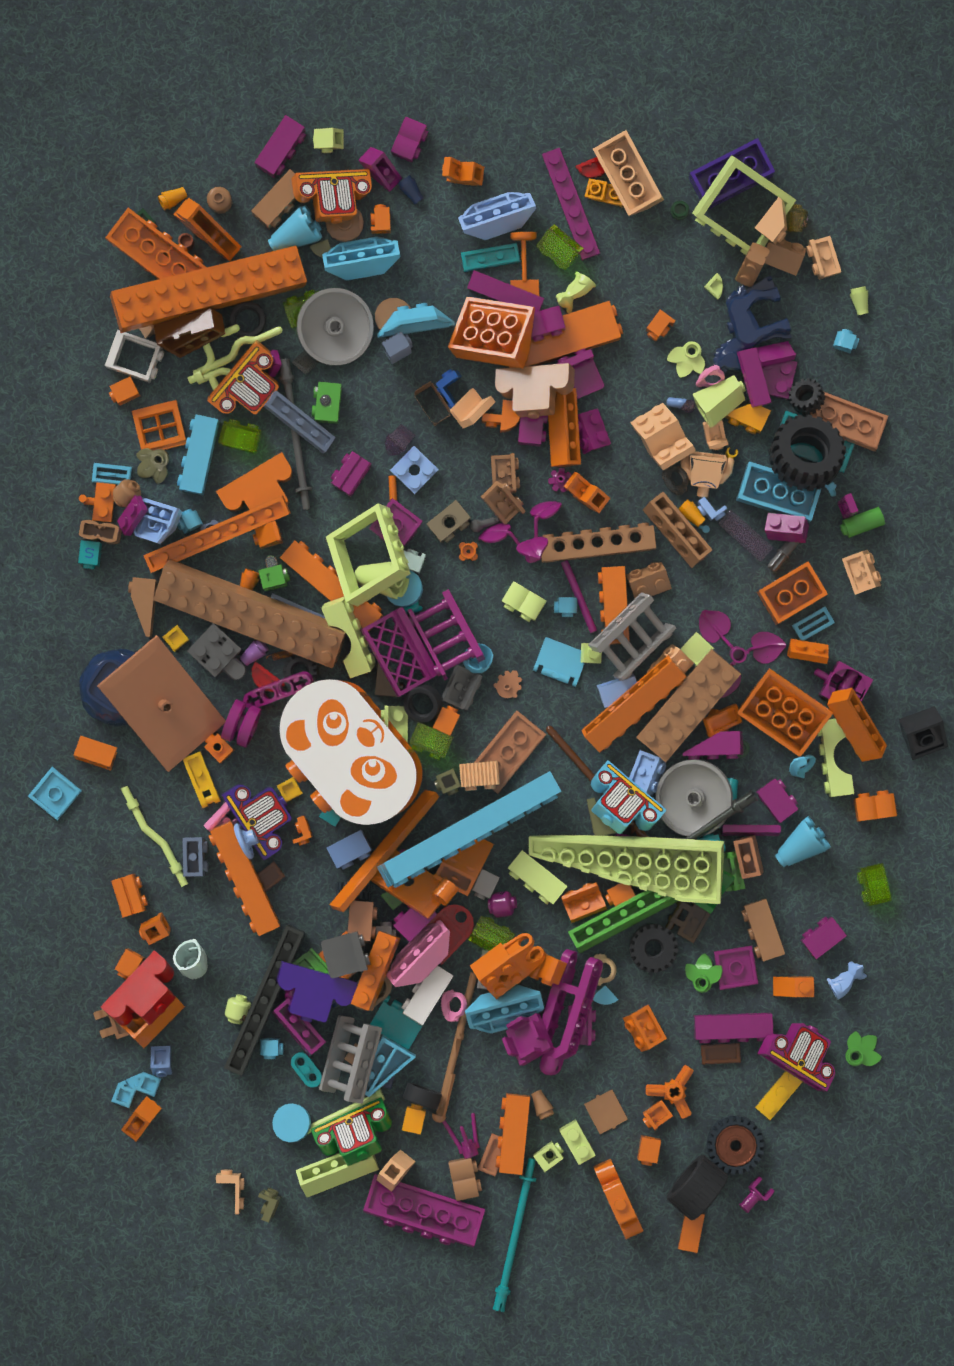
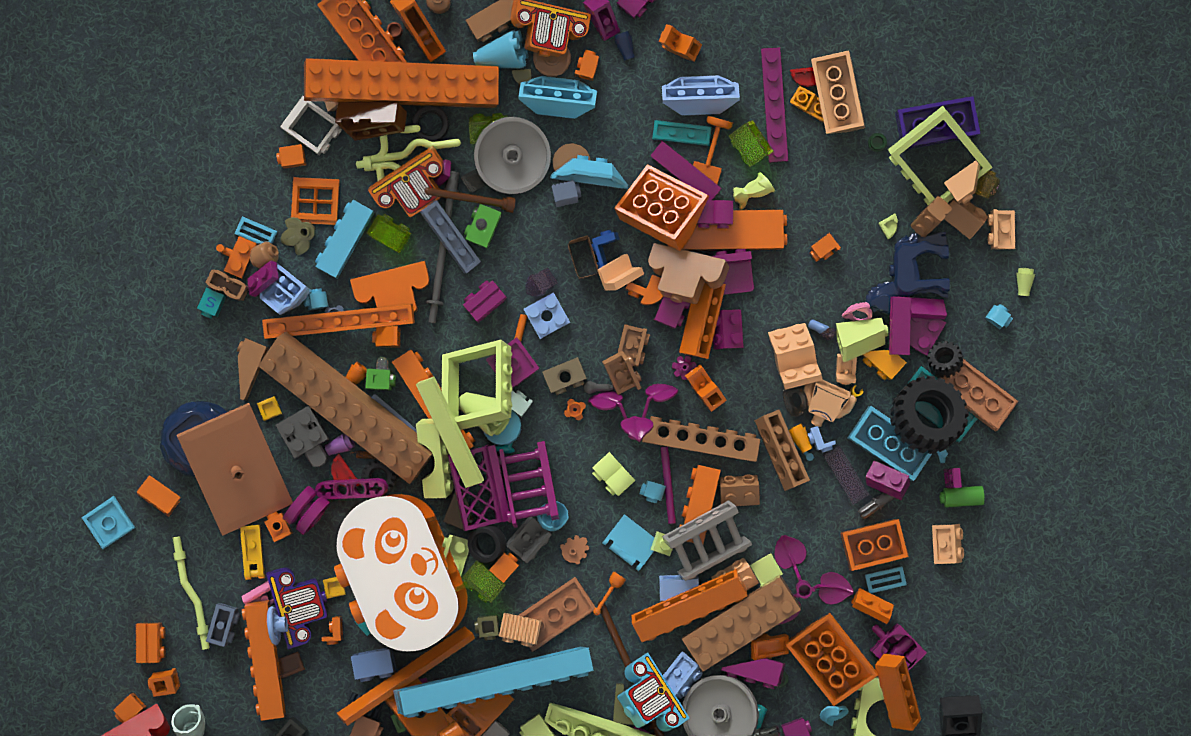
camera: 15 degrees right, 0 degrees up
(343, 375) = (506, 204): none -> reddish brown piece
(356, 605) = (450, 432): none -> yellowish green tile
(556, 702) = (616, 582): none -> orange hinge
(686, 361) = (839, 290): yellowish green plate -> none

